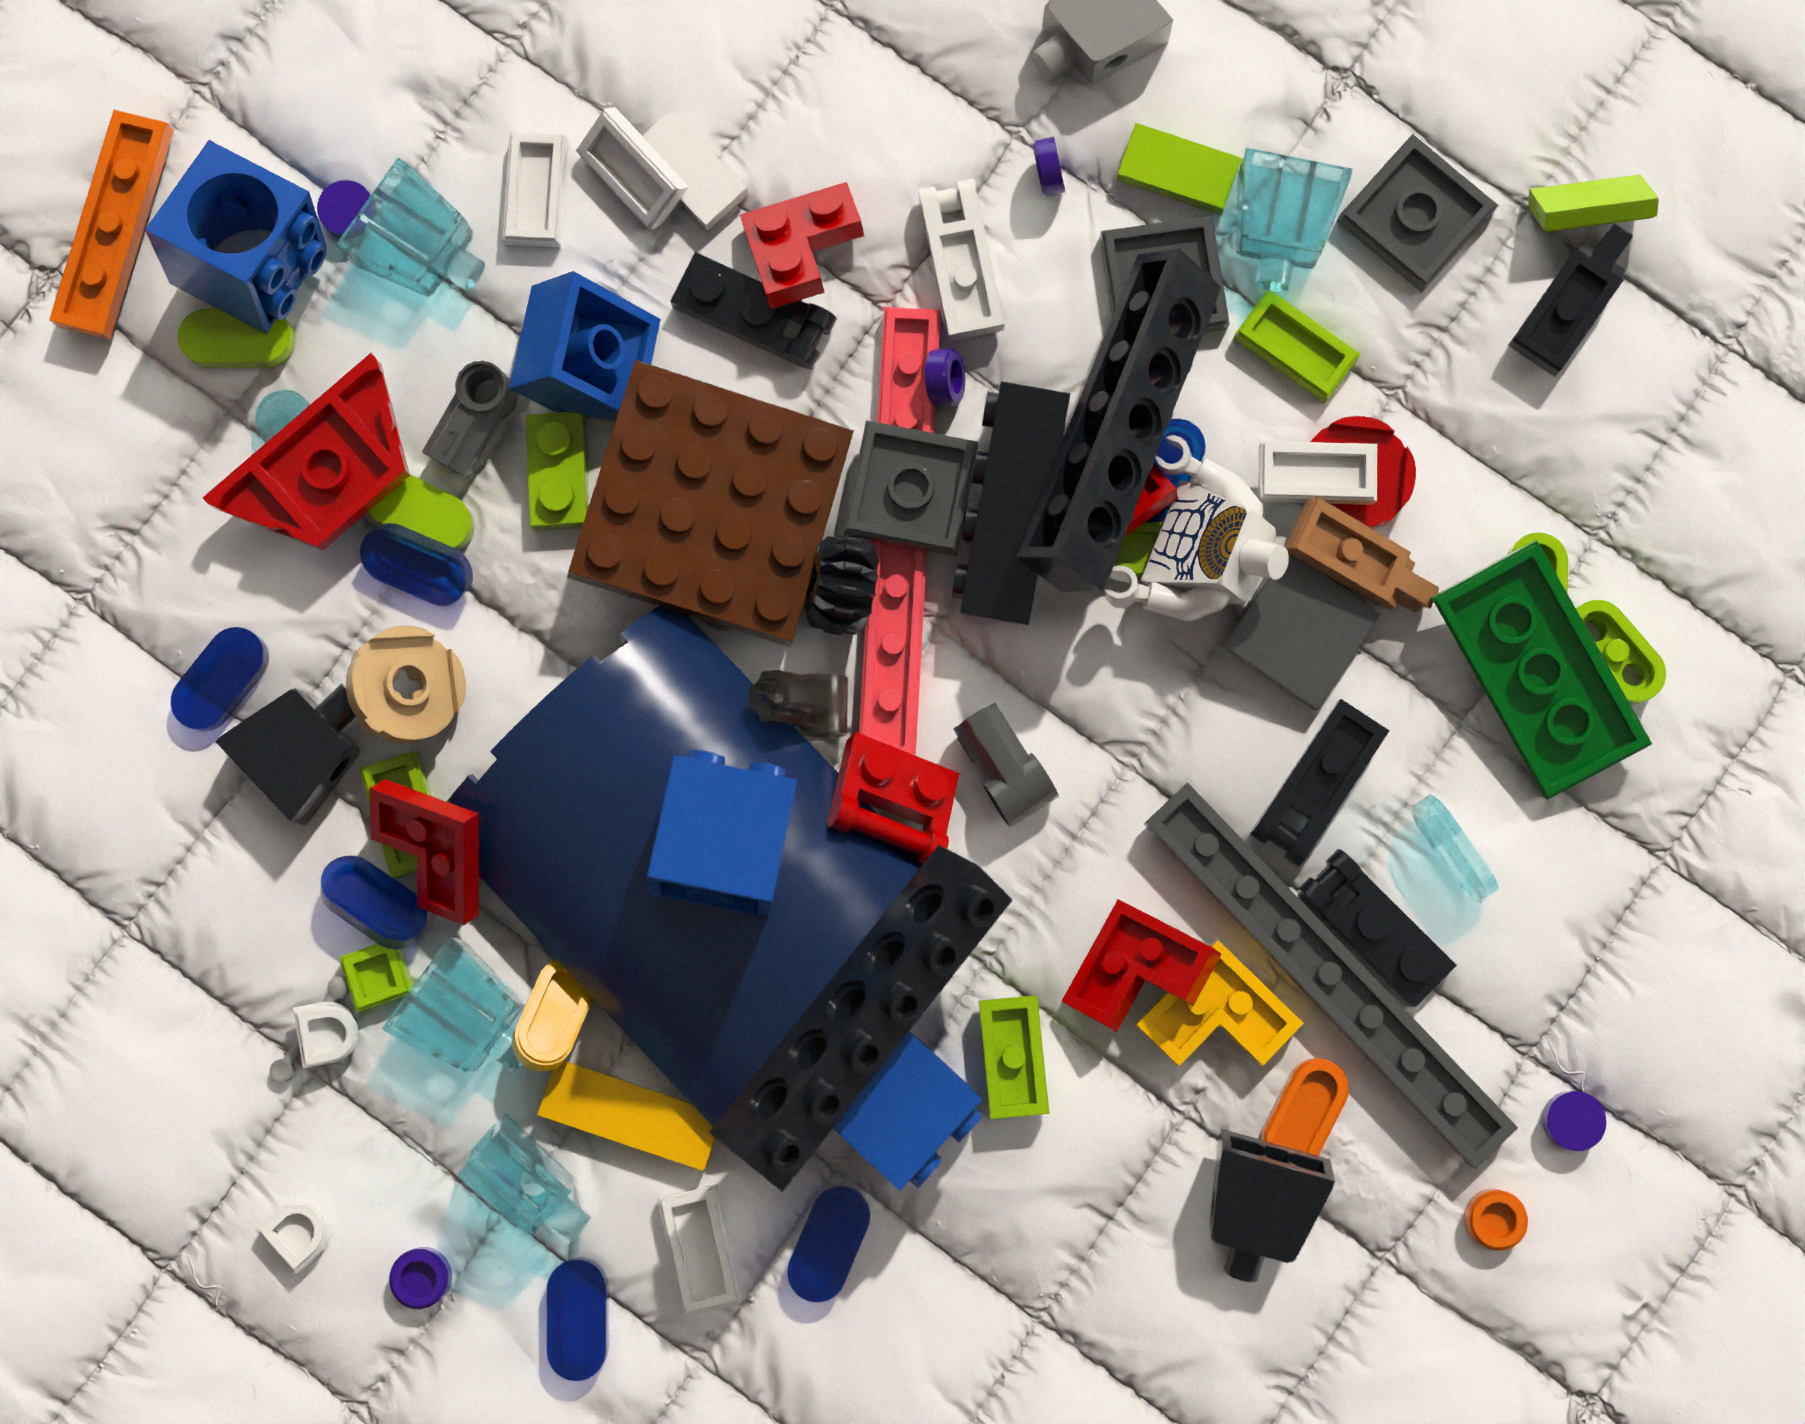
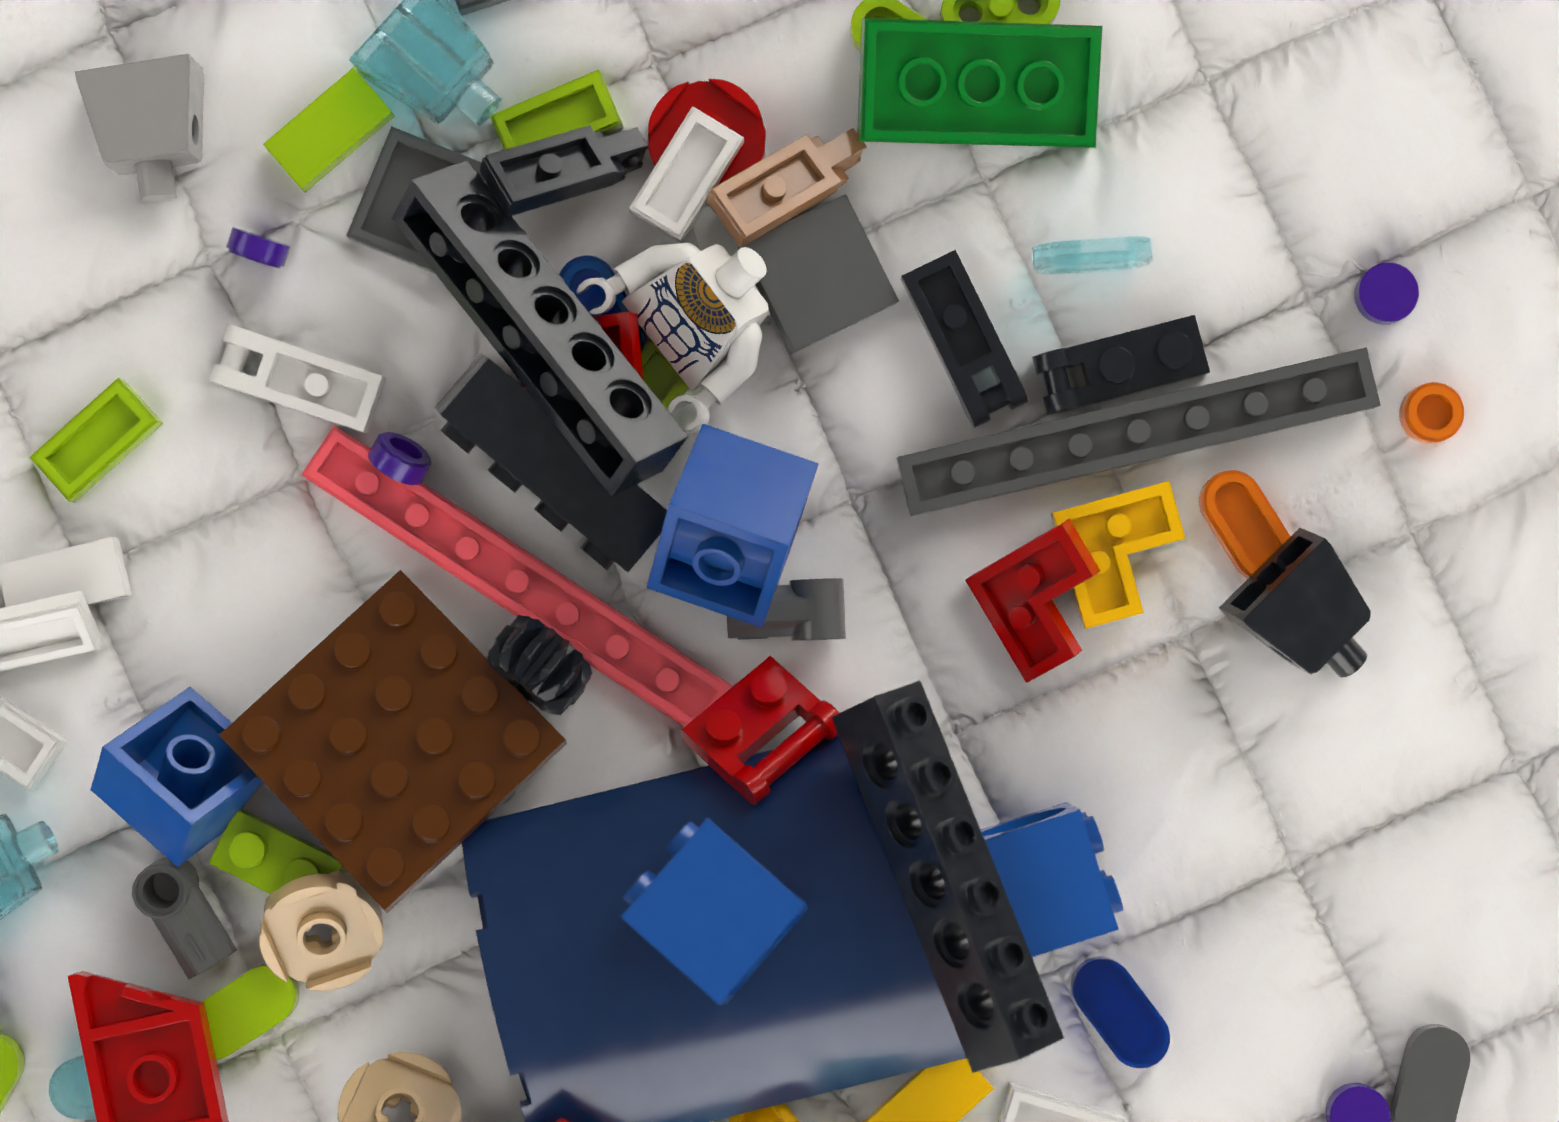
camera: 60 degrees left, 5 degrees up
(416, 564) = (290, 1042): clear blue tile -> none
(551, 531) = (314, 900): none -> tan plate
(741, 309) = (231, 598): black plate -> none
(789, 232) = (179, 521): plate -> none
(807, 701) = (626, 760): clear smoke piece -> none
(817, 131) = (96, 440): none -> lime tile
(911, 488) = (485, 549): dark grey tile -> none
(1013, 1057) = (1051, 754): lime plate -> none
(1049, 673) = (731, 525): none -> blue brick
(1262, 367) = (561, 167): none -> black hinge

